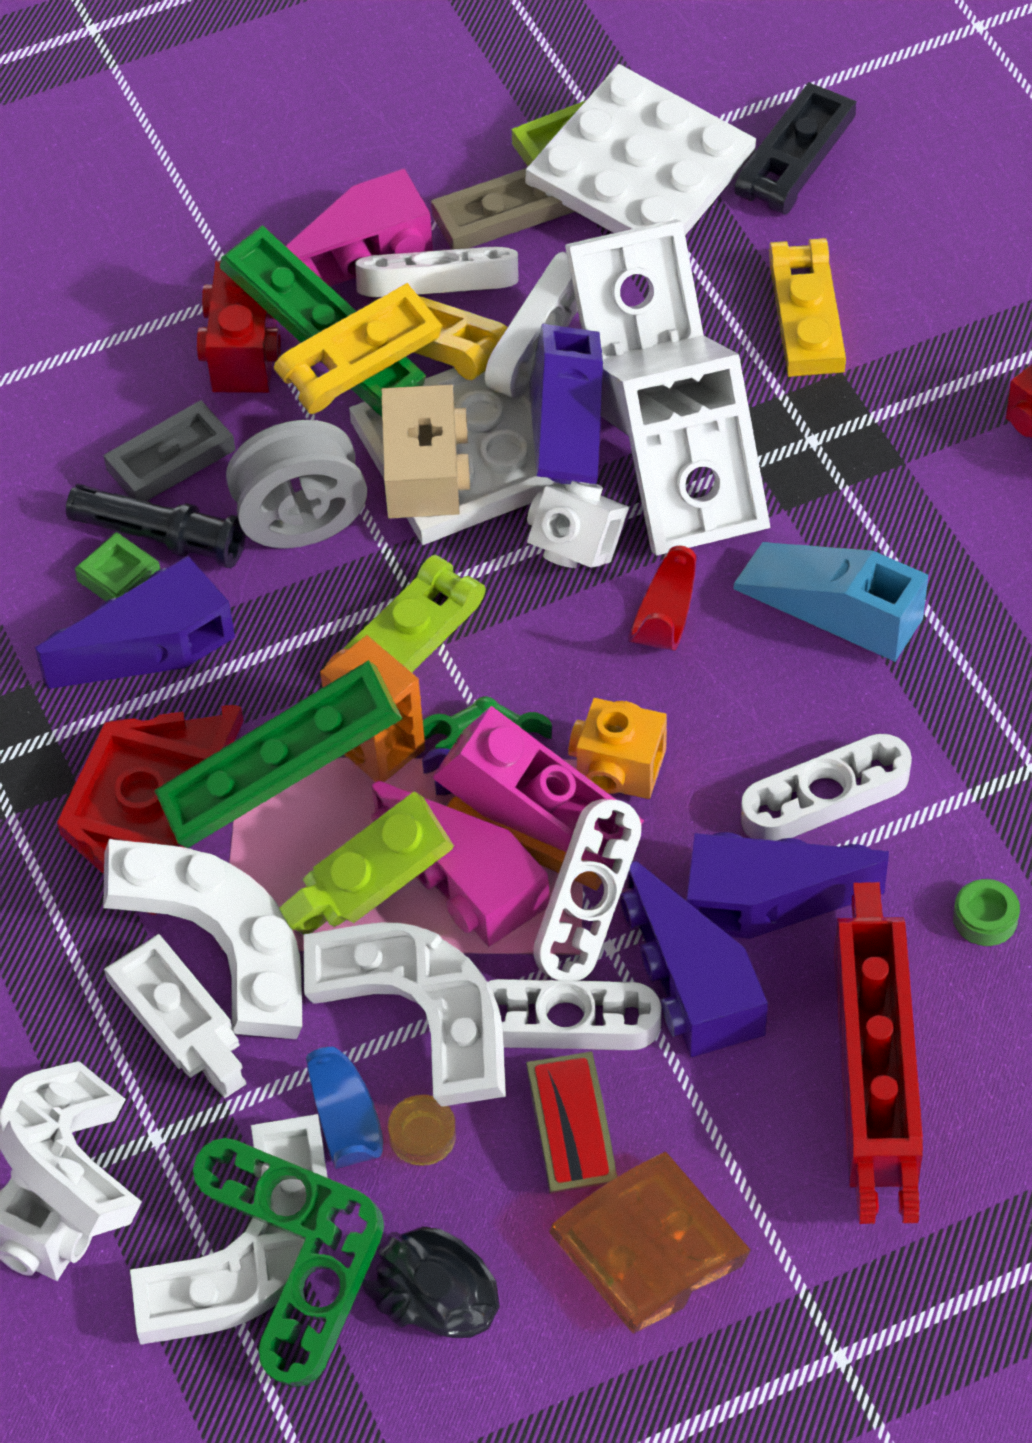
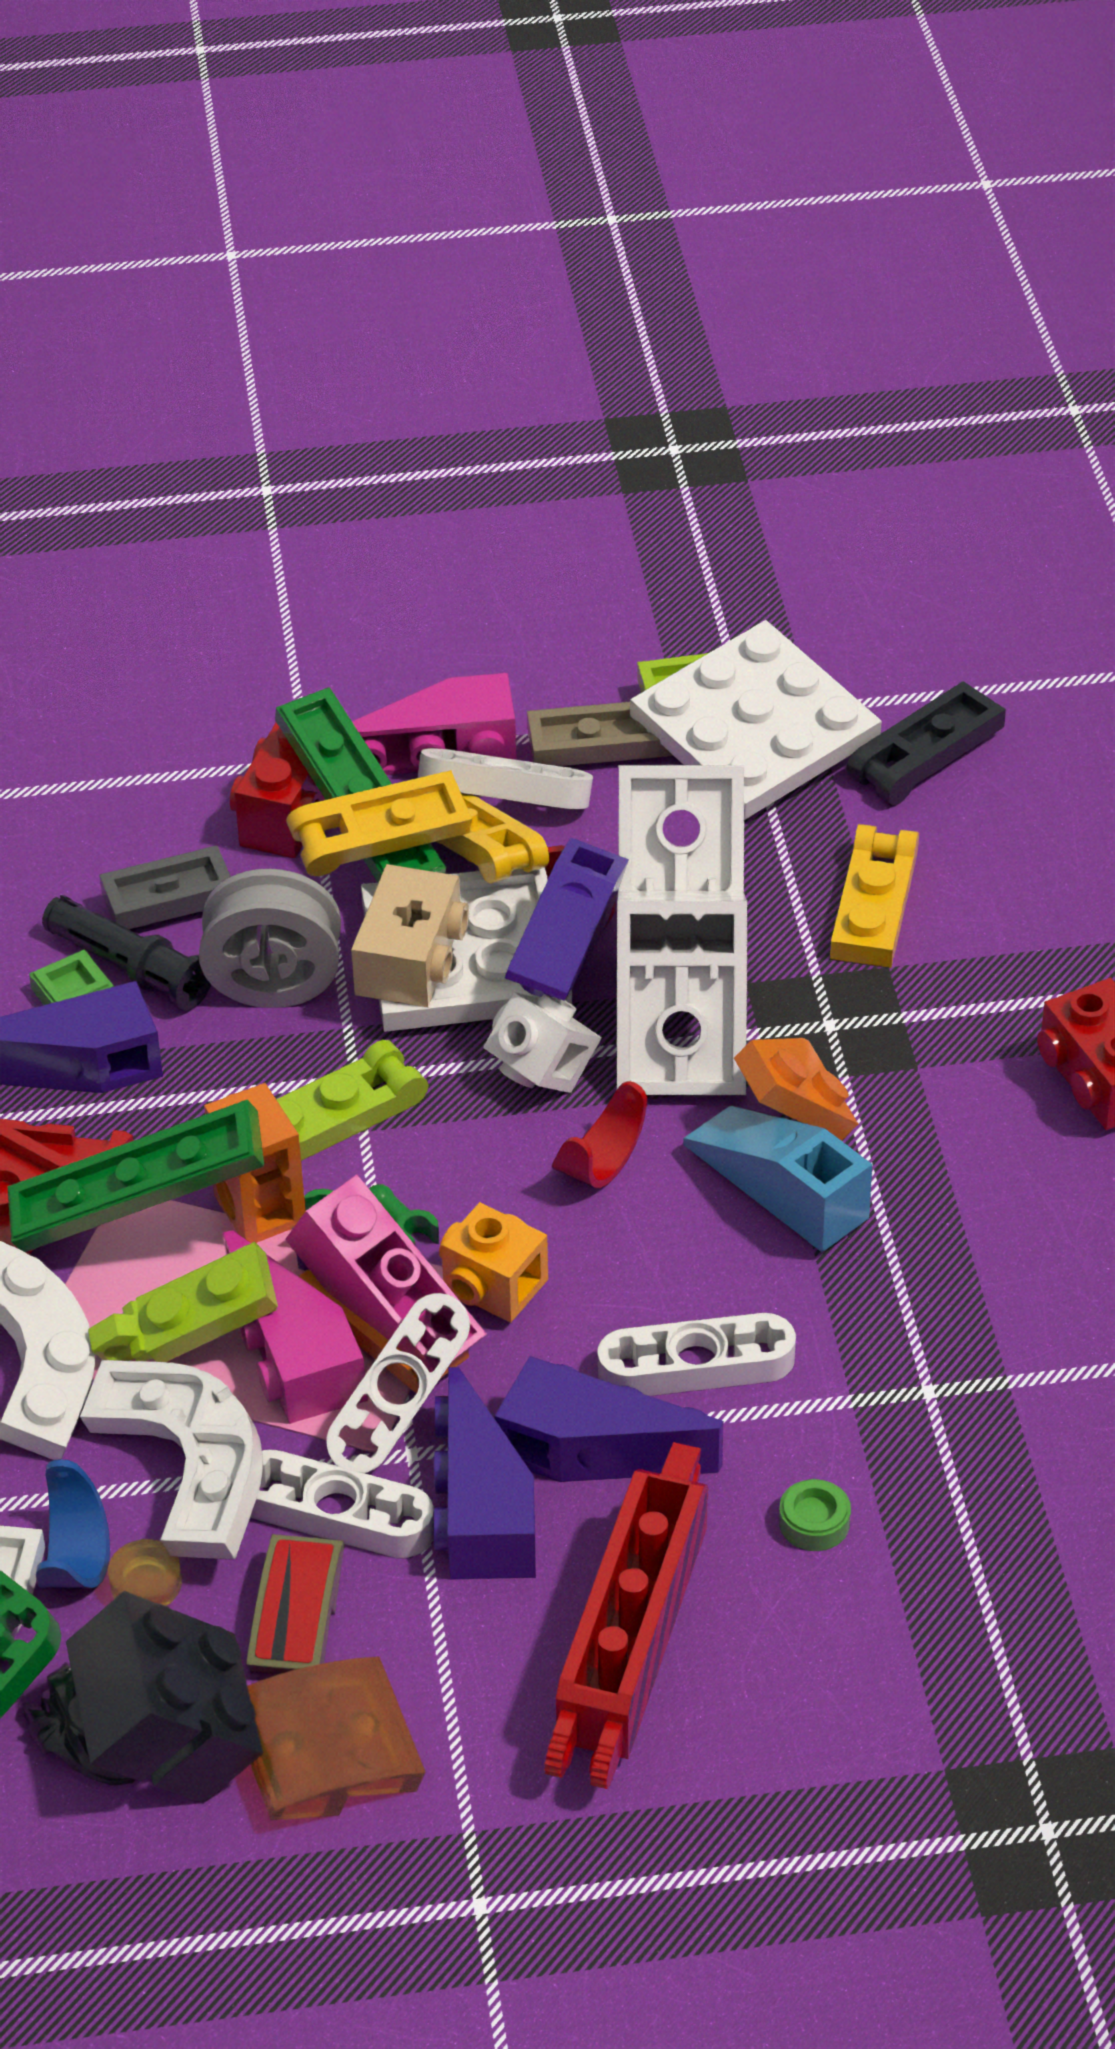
camera: 15 degrees right, 10 degrees down
(505, 1251) = (163, 1697): none -> black piece
(548, 303) = (531, 867): white beam -> none
(821, 511) = (795, 1082): none -> orange wing

